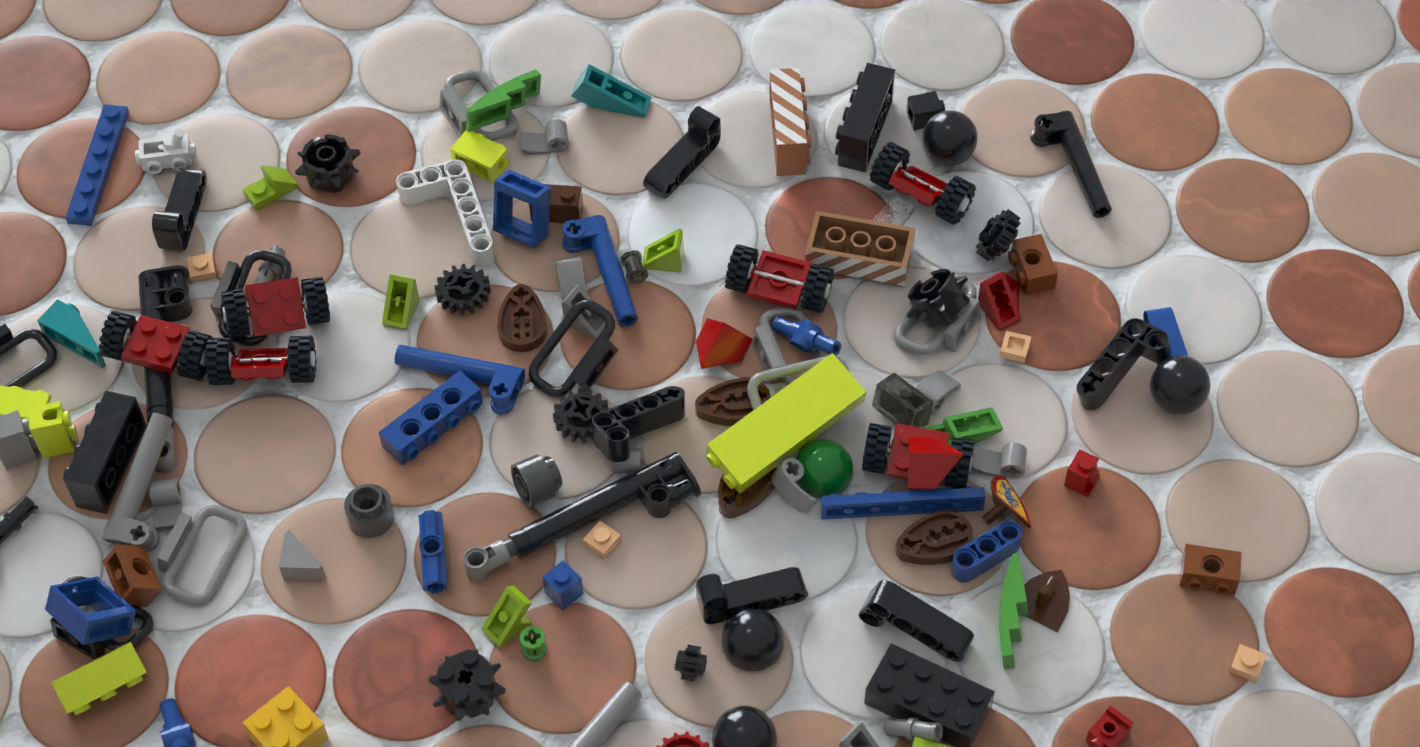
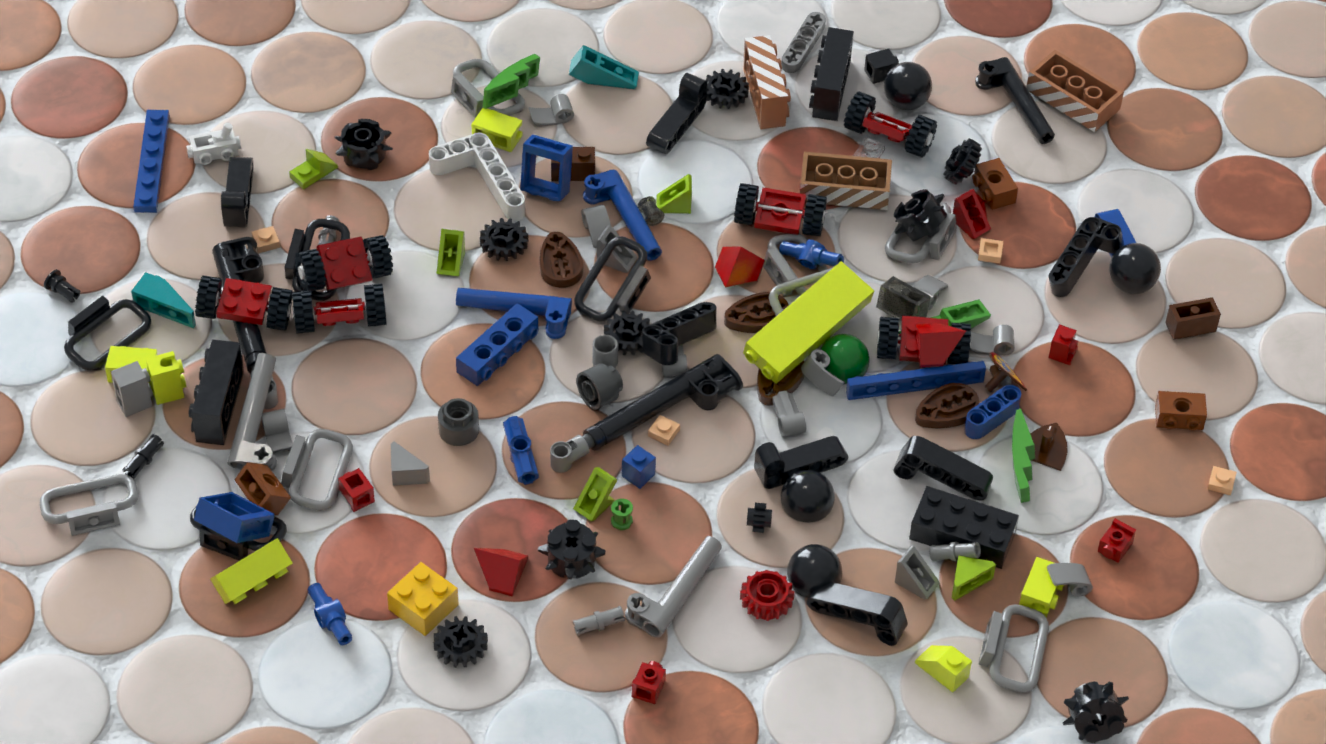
camera: 10 degrees left, 5 degrees down
(238, 584) = (356, 489): none -> red brick
(384, 698) = (501, 568): none -> red slope
(550, 429) = (605, 350): none -> light grey piece
(744, 125) = (726, 89): none -> black gear
(748, 540) = (789, 418): none -> light grey piece
(841, 74) = (804, 42): none -> light grey beam
(1142, 157) = (1074, 90): none -> nougat brick
(1240, 453) = (1193, 318): none -> reddish brown brick

